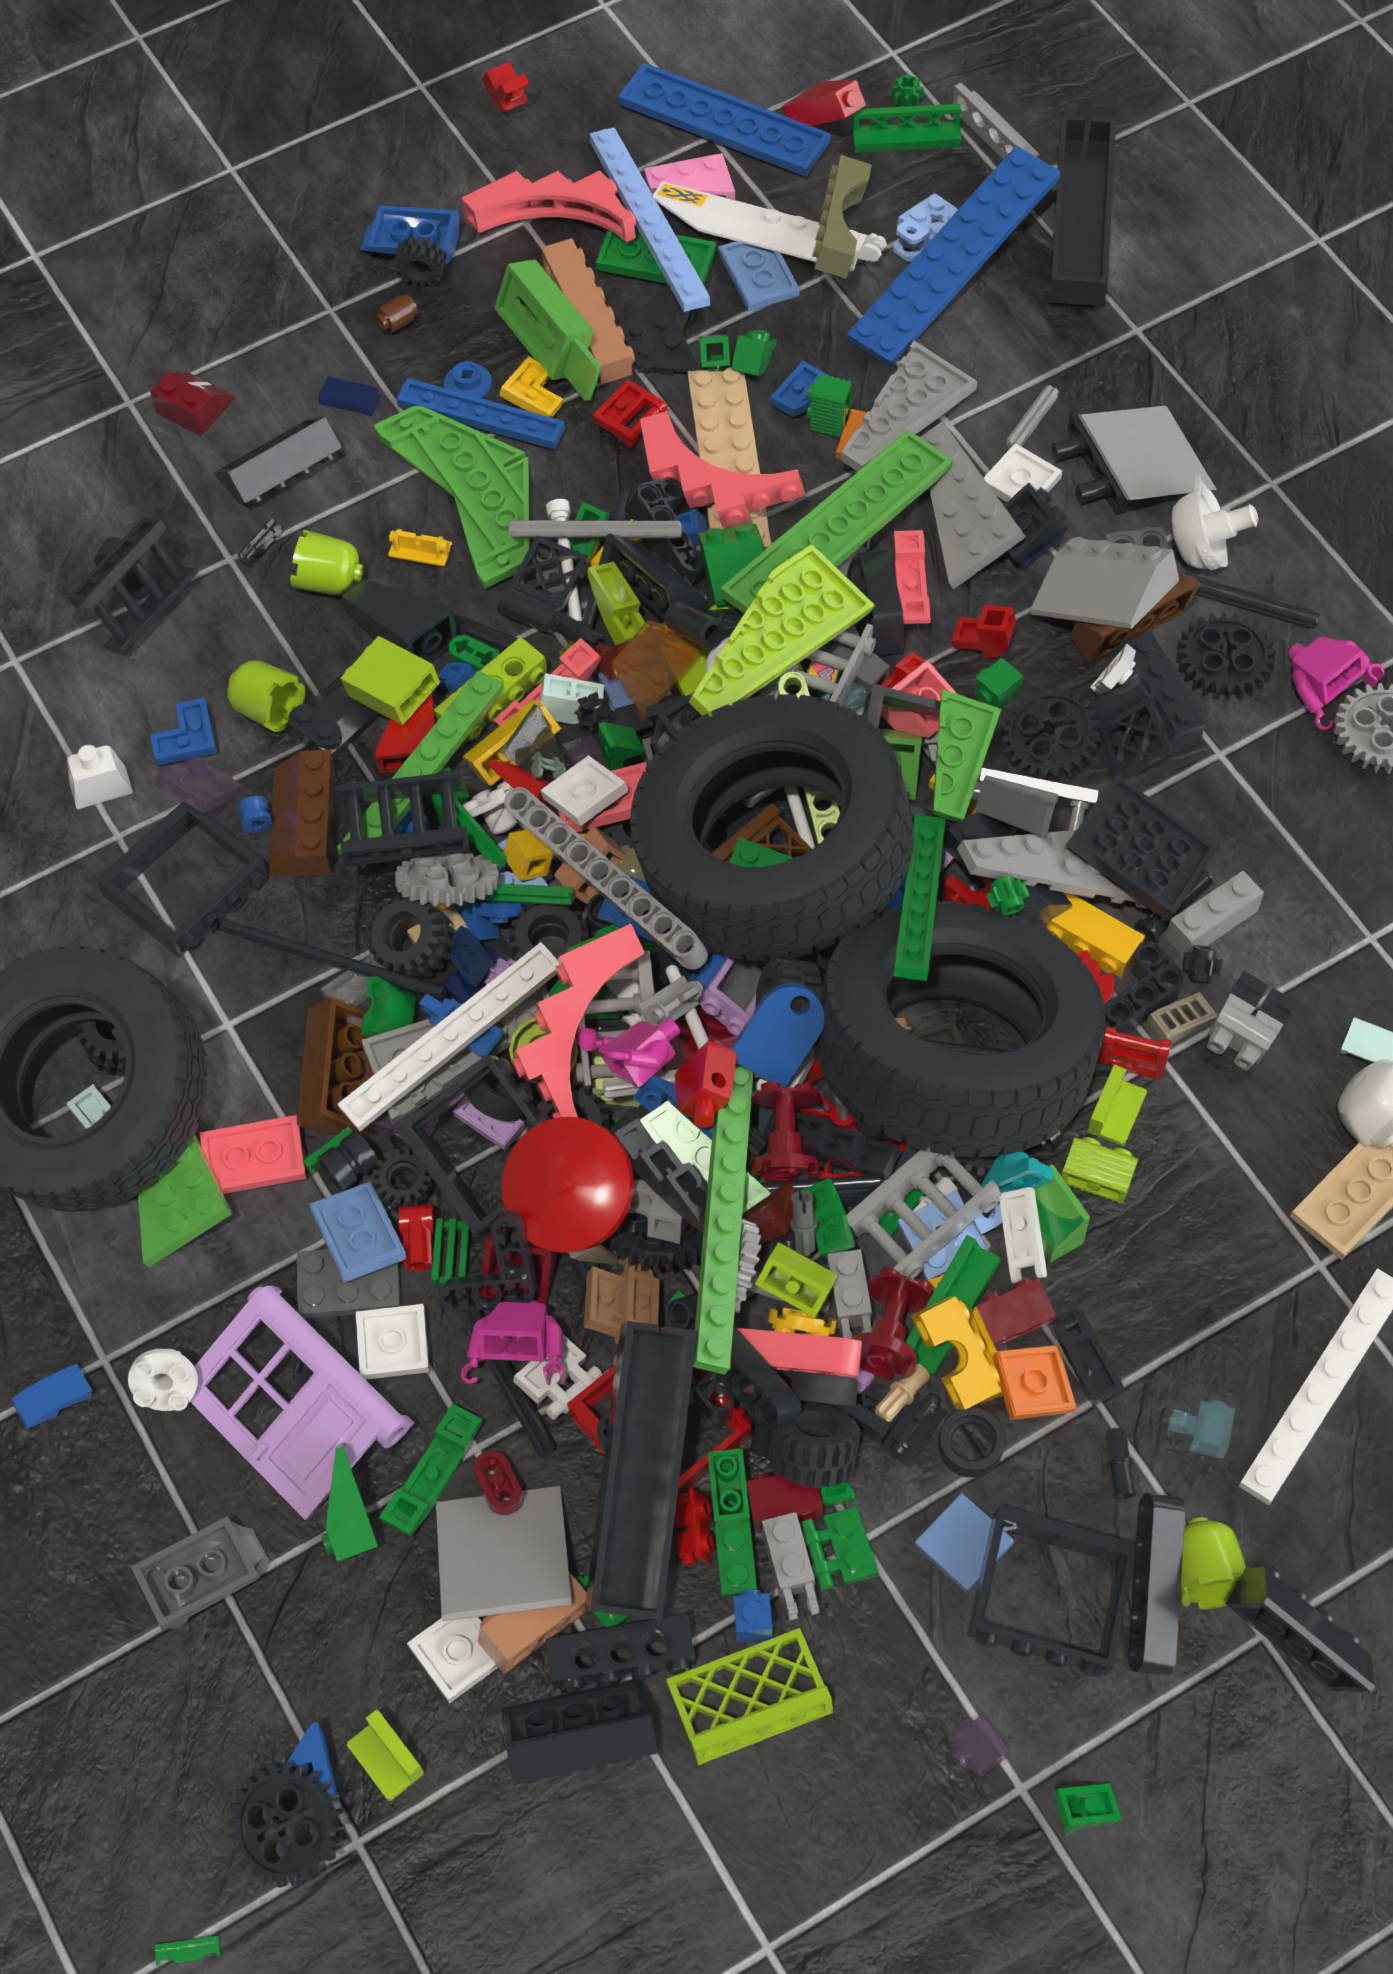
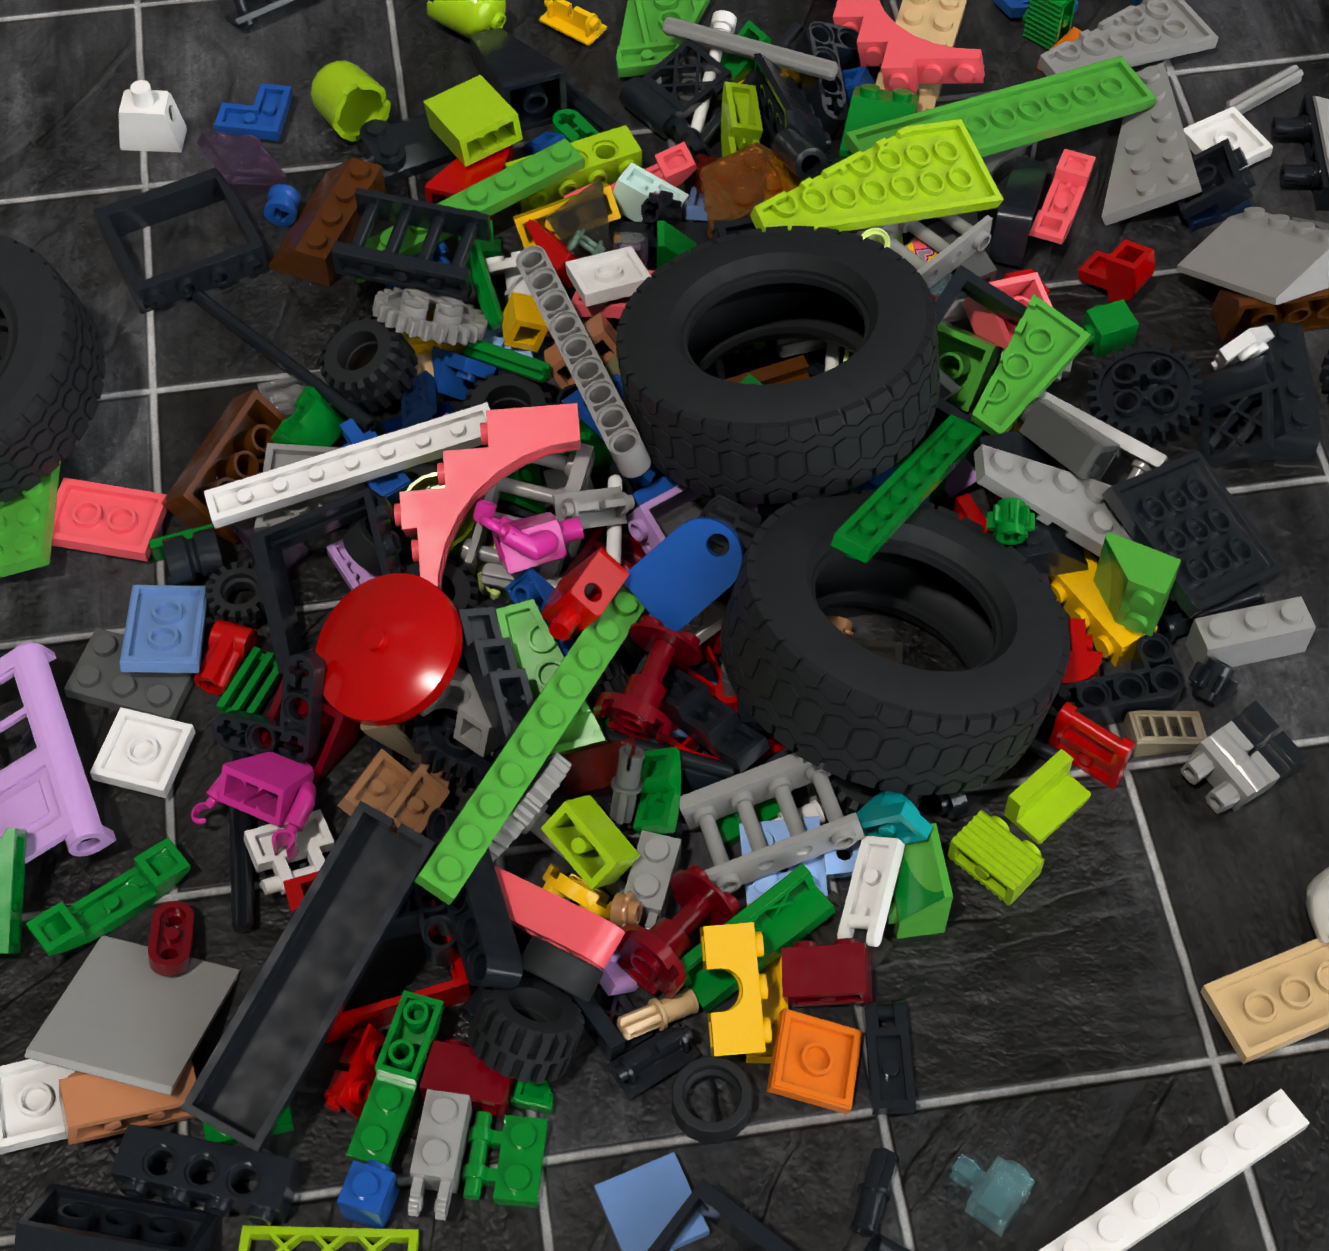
camera: 20 degrees right, 5 degrees down
(847, 1323) = (625, 909): none -> medium nougat plate
(1118, 909) = (1135, 582): none -> bright green slope

